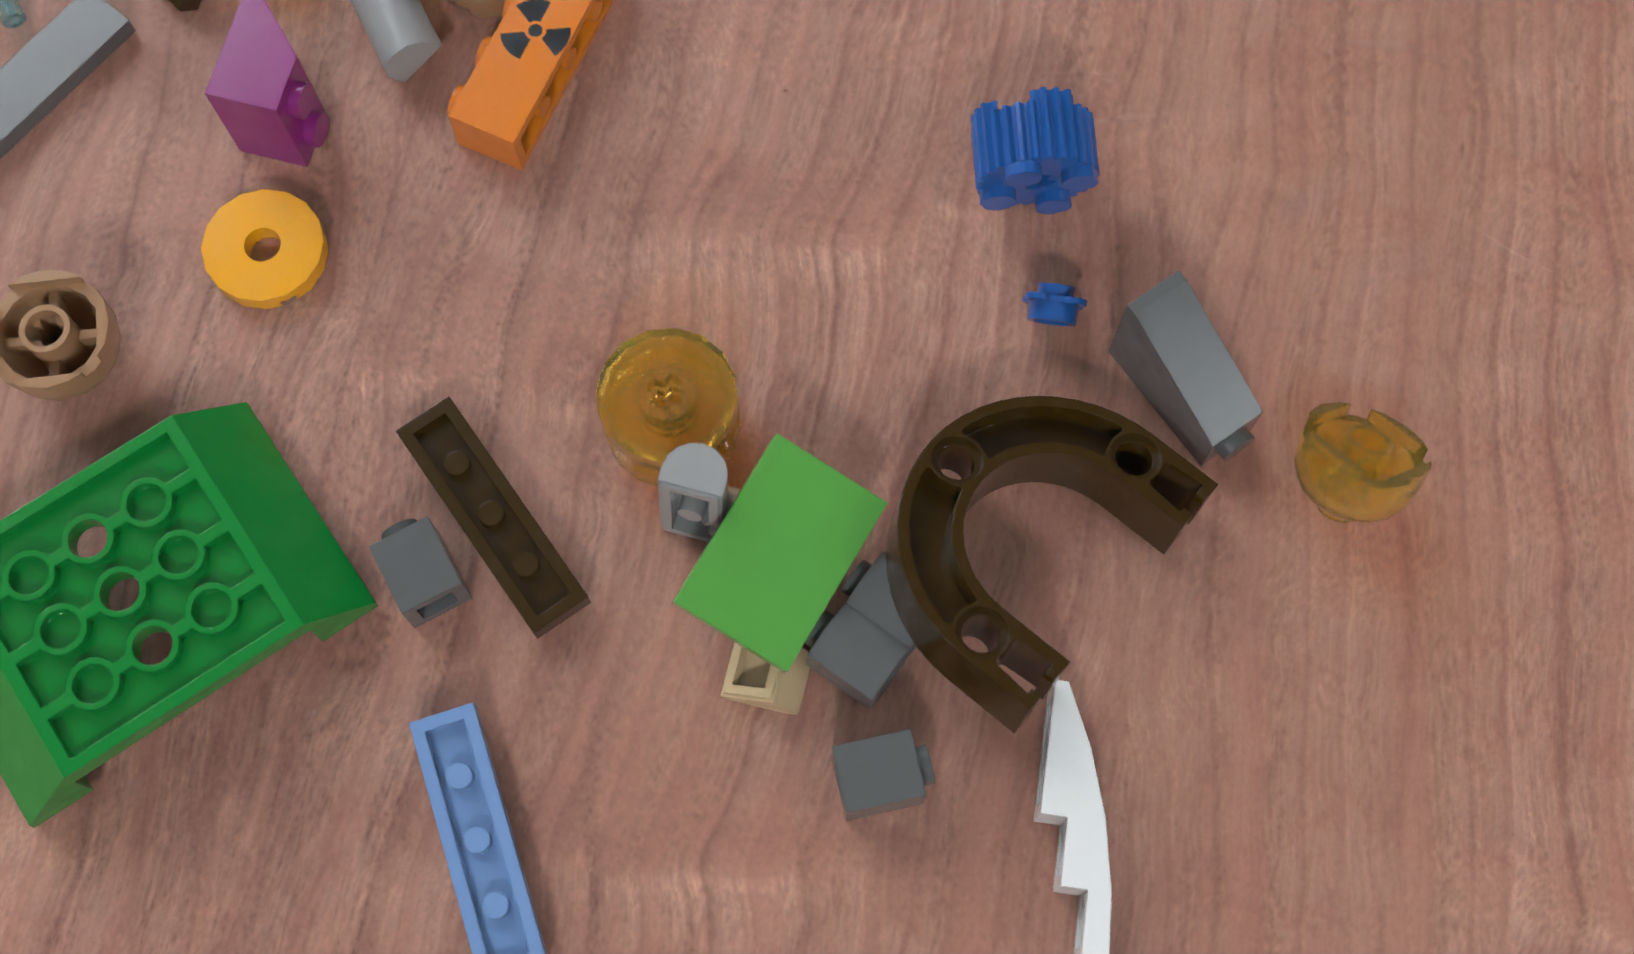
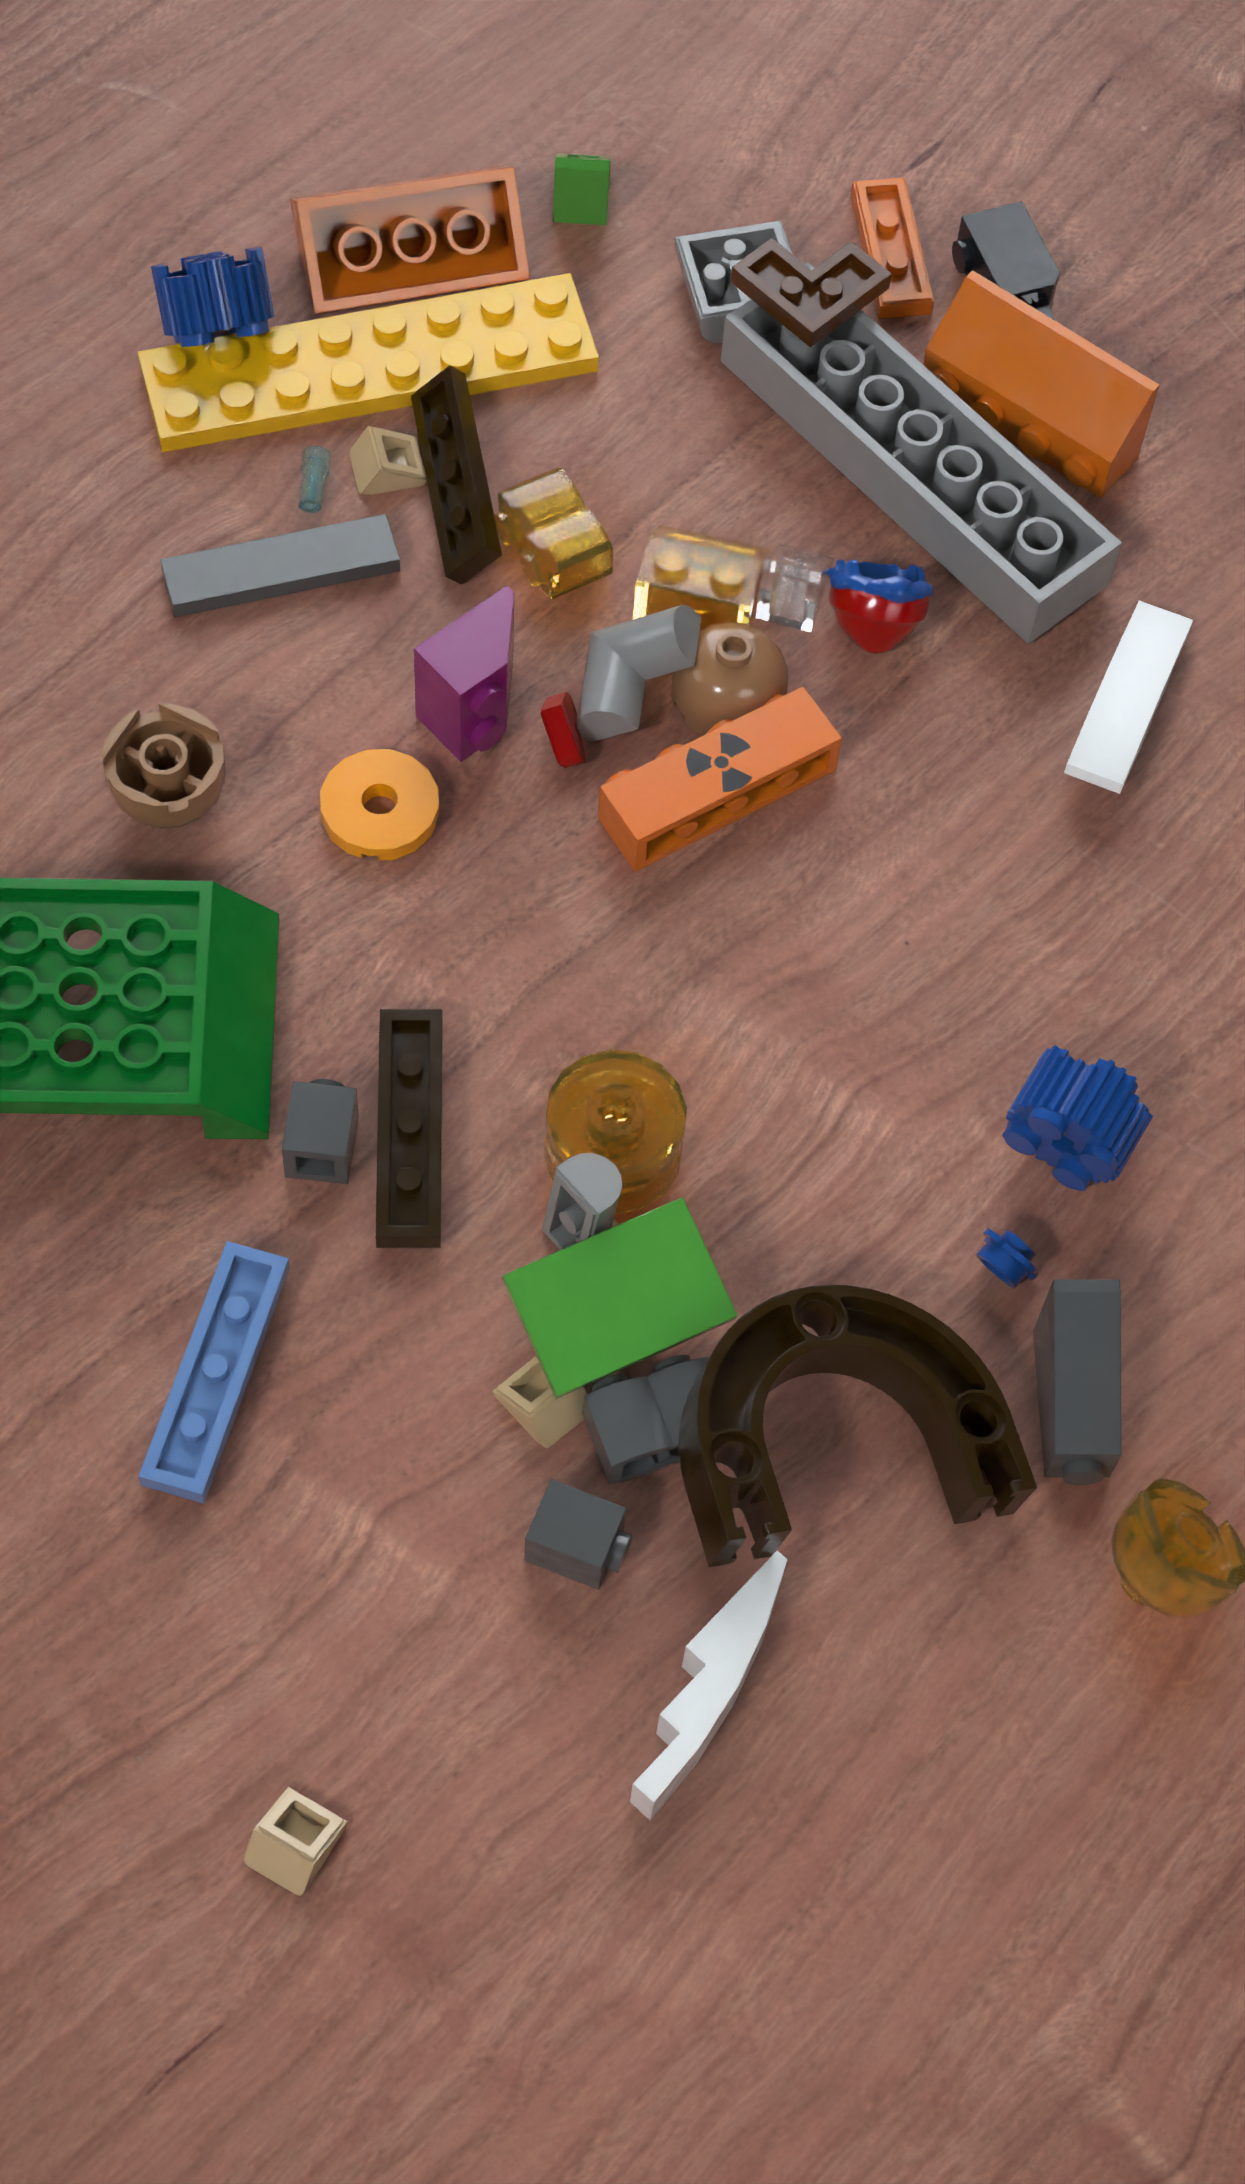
camera: 30 degrees right, 10 degrees down
(375, 83) = (561, 727): none -> red tile

